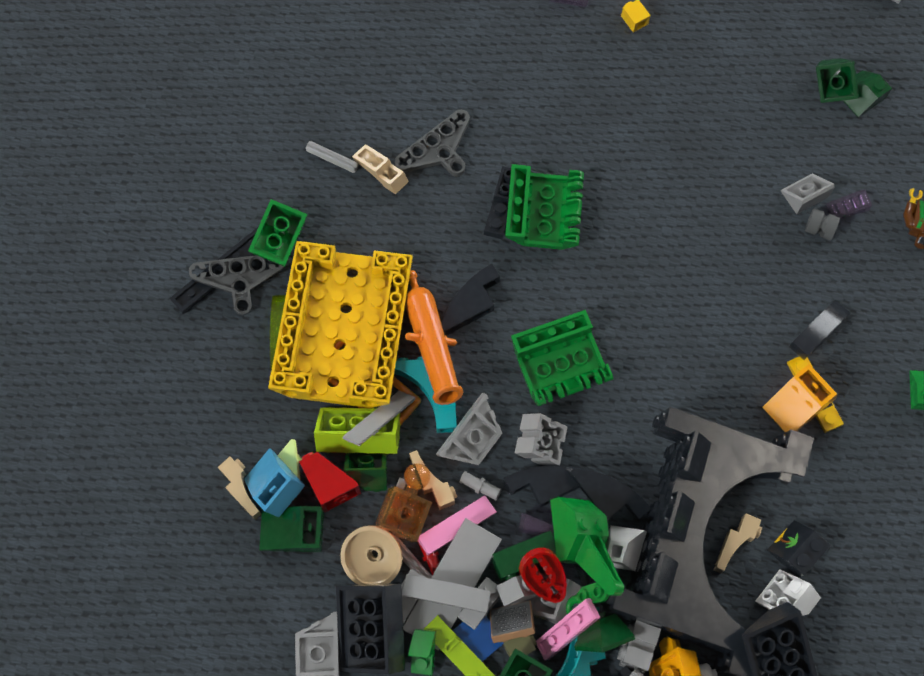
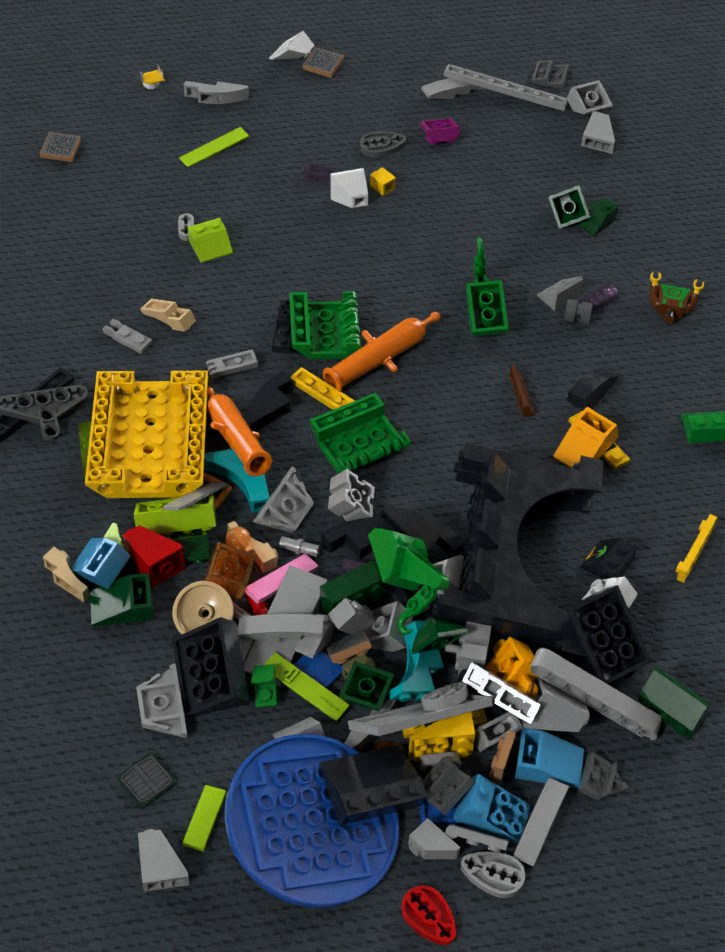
camera: 10 degrees left, 20 degrees down
(278, 233) = (79, 366): green slope -> none
(332, 156) = (121, 311): light grey axle -> none
(336, 191) = (128, 336): none -> light grey hinge
(417, 51) = (182, 226): none -> light grey beam
(431, 152) = (214, 300): dark grey beam -> none
(436, 75) = (209, 240): none -> lime slope
(440, 242) = (232, 363): none -> light grey hinge
(531, 291) = (319, 389): none -> yellow plate
(552, 568) = (362, 596): red piece -> none
(567, 629) = (403, 637): bright pink tile -> none
(598, 24) = (349, 188): none -> white slope
(598, 249) = (378, 351): none -> orange piece
(722, 204) = (485, 300): none -> green slope
(742, 321) = (521, 392): none -> reddish brown slope
(747, 531) = (551, 557): tan slope -> none
(876, 571) = (705, 529): none -> yellow plate

